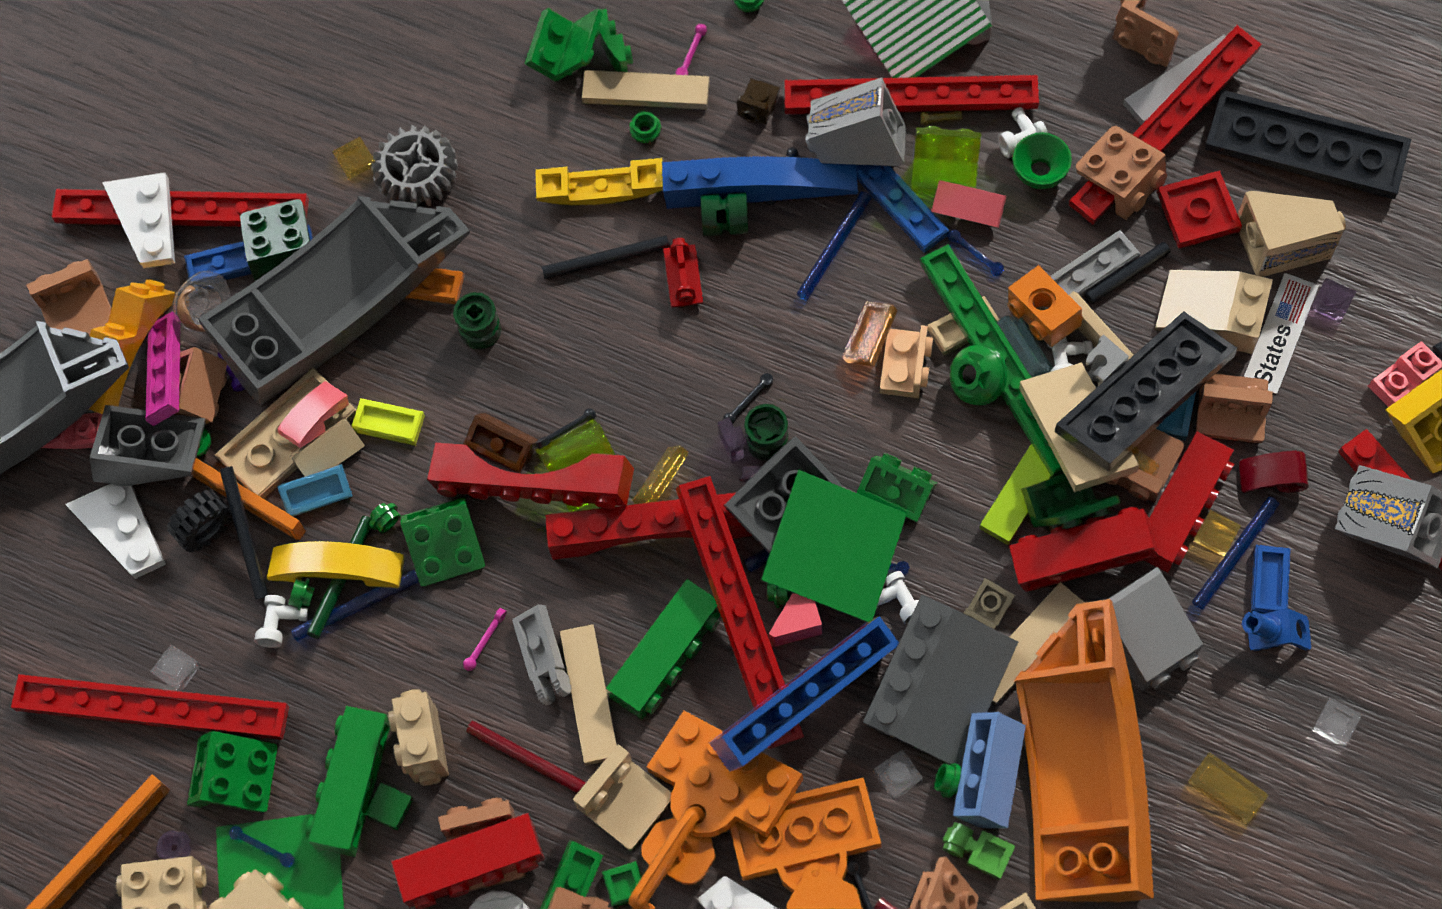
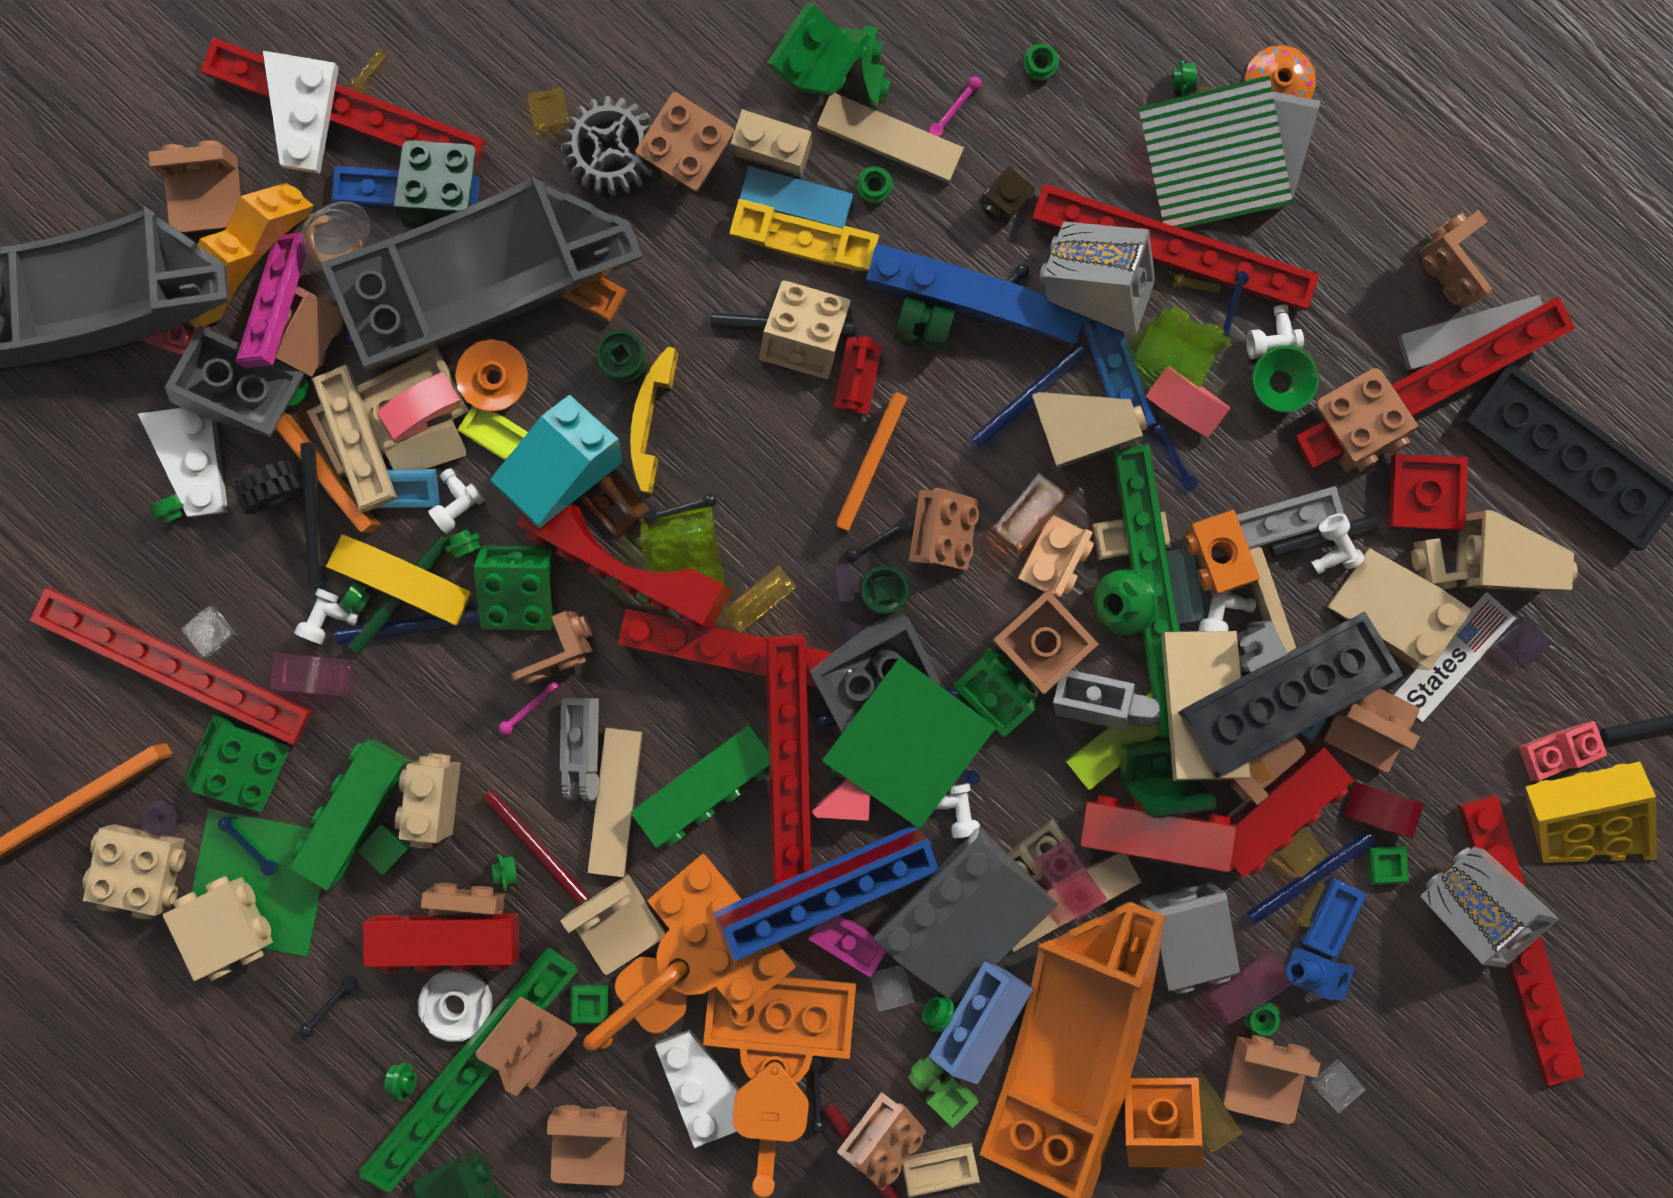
camera: 10 degrees right, 20 degrees up
(111, 574) = (167, 509): none -> green plate
(192, 176) = (357, 83): none -> clear yellow piece
(264, 458) = (354, 438): none -> tan tile
(279, 671) = (310, 674): none -> clear pink slope
(366, 360) = (477, 365): none -> orange dish
(374, 480) = (464, 497): none -> white piece
(448, 414) = (557, 461): none -> teal slope
(476, 140) = (684, 142): none -> nougat bracket
(502, 577) = (574, 638): none -> nougat bracket
(507, 786) = (504, 872): none -> green plate
(515, 330) = (659, 375): none -> yellow slope
(548, 121) = (771, 143): none -> tan brick
(584, 155) = (797, 197): none -> dark azure tile
(624, 255) = (804, 329): none -> tan bracket
(718, 337) = (871, 462): none -> orange tile
(800, 368) = (944, 529): none -> nougat bracket
(843, 743) = (849, 943): none -> dark pink plate
(890, 241) = (1087, 425): none -> tan slope
(918, 424) = (1045, 642): none -> nougat slope
(974, 96) = (1241, 279): none -> clear blue hinge
(990, 457) = (1103, 701): none -> light grey hinge
(1019, 618) = (1070, 879): none -> clear pink slope
(1150, 277) = (1336, 528): none -> white piece
(1192, 806) = (1163, 1122): none -> orange slope
(1220, 661) = (1249, 988): none -> clear pink slope
(1222, 258) = (1429, 562): none -> tan bracket
(1245, 590) = (1303, 920): none -> clear yellow piece
(1250, 681) = (1265, 1027): none -> green plate
(1270, 735) = (1267, 1078): none -> nougat bracket
(1298, 519) = (1387, 864): none -> green tile

